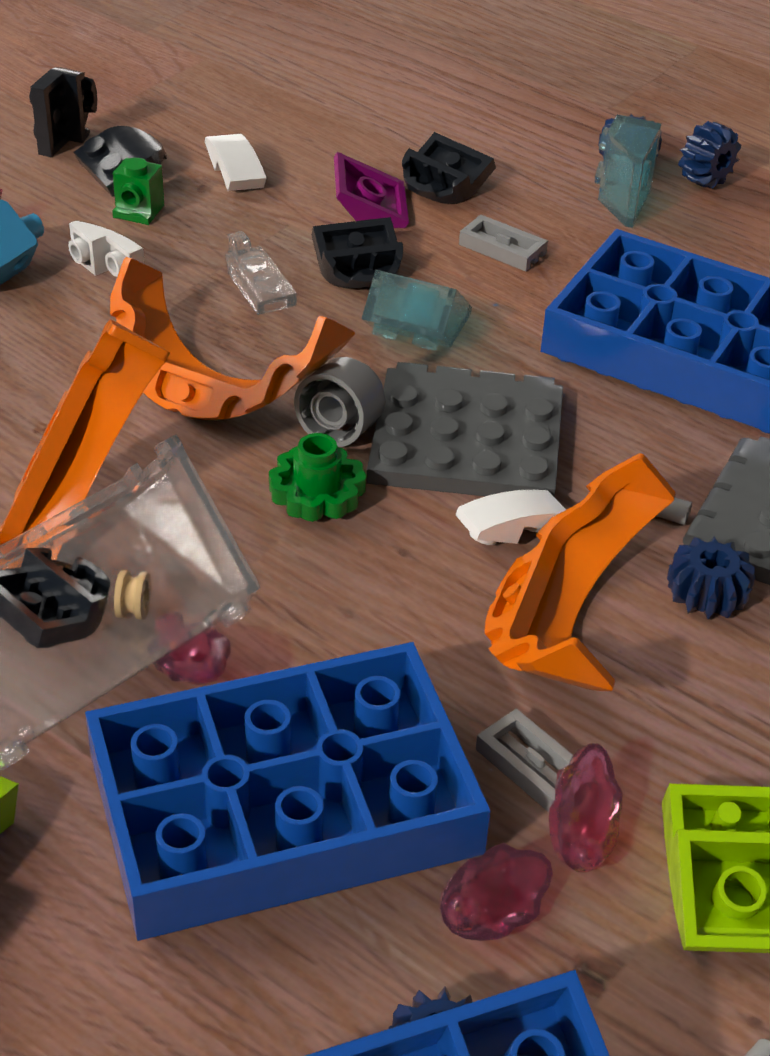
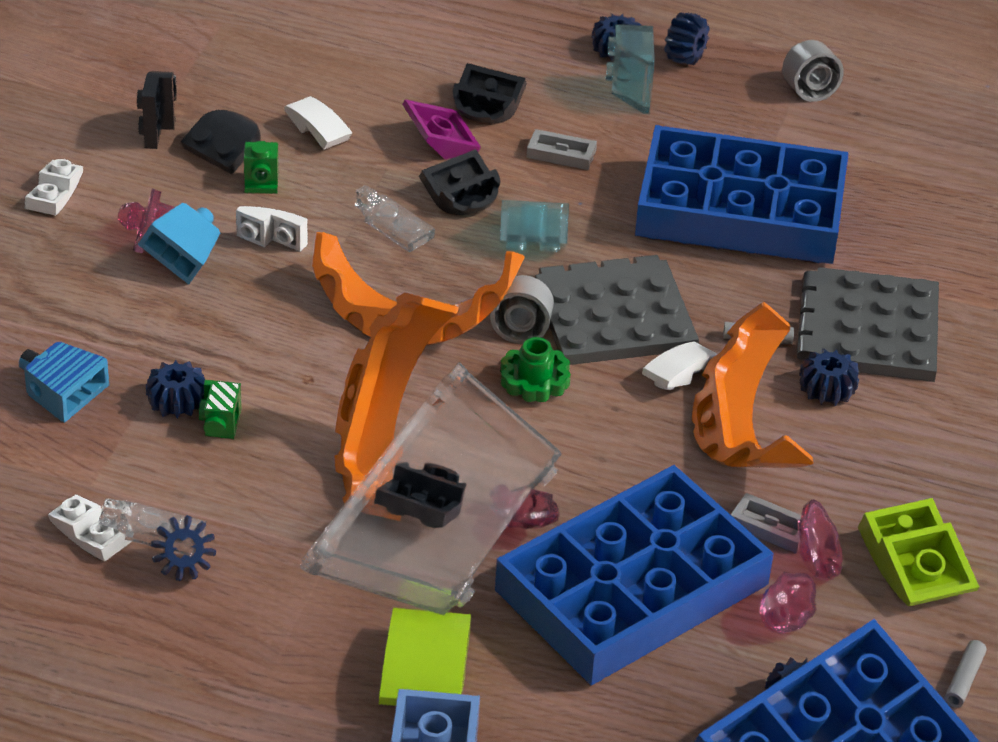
camera: 20 degrees left, 0 degrees up
(132, 594) = (478, 478): tan bush -> none

